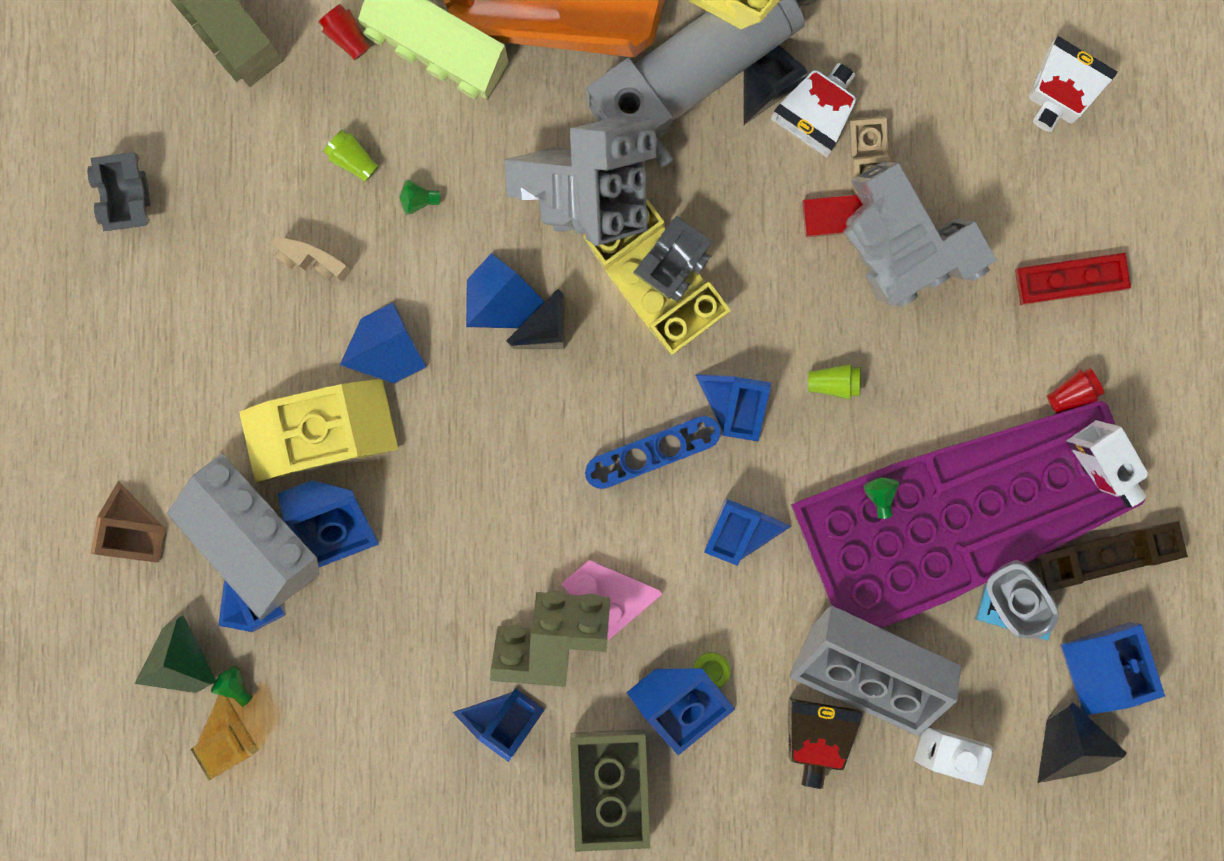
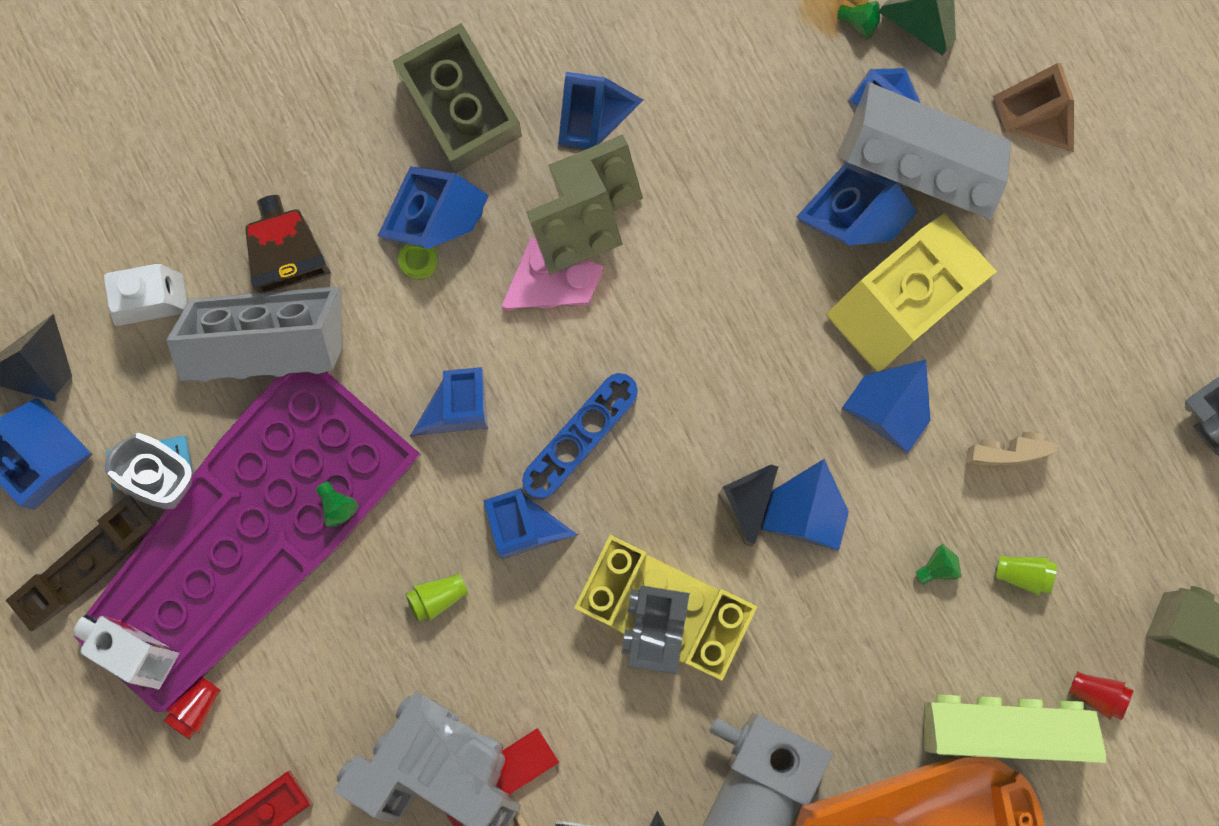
camera: 155 degrees right, 5 degrees down
(593, 185) = (780, 661): light grey brick -> none

